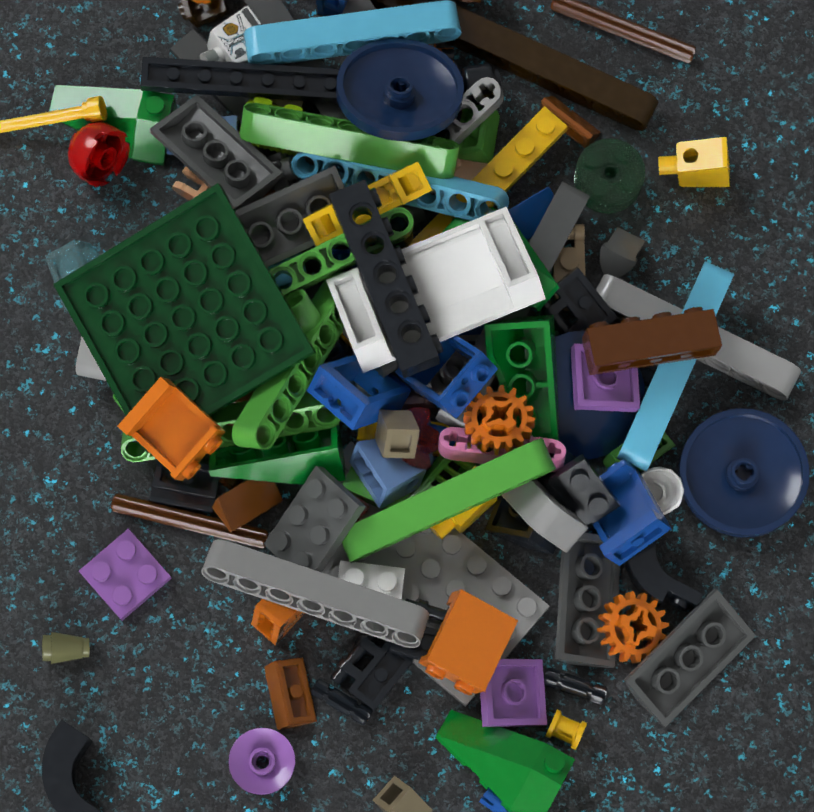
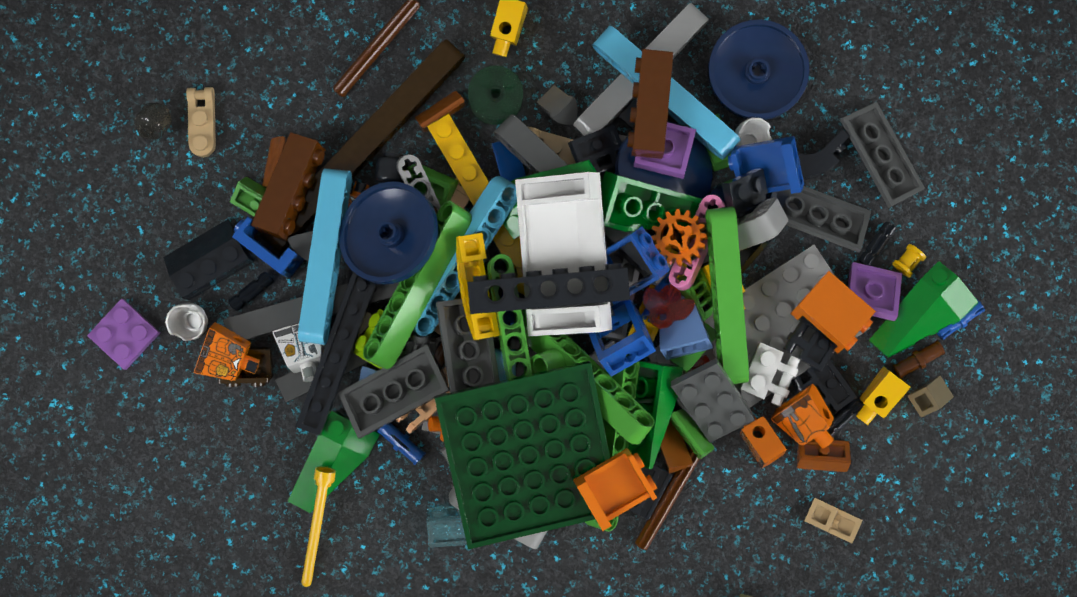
camera: 70 degrees left, 10 degrees up
(97, 152) = (356, 484): red cylinder -> none
(125, 574) = (698, 553): medium lavender plate -> none
(160, 189) = (413, 455): none -> blue pin
(211, 728) = (833, 520): none -> tan slope
(257, 744) = (883, 492): medium lavender dish -> none
(266, 518) = (691, 433): none -> bright green slope
(315, 593) = (768, 416): light grey beam -> none
(328, 653) = (805, 418): none -> orange torso
(397, 434) = (665, 317): dark tan panel -> none
(397, 741) = (884, 385): none -> yellow torso
(445, 777) = (918, 359): none -> reddish brown pin
(620, 633) = (853, 200): orange gear -> none

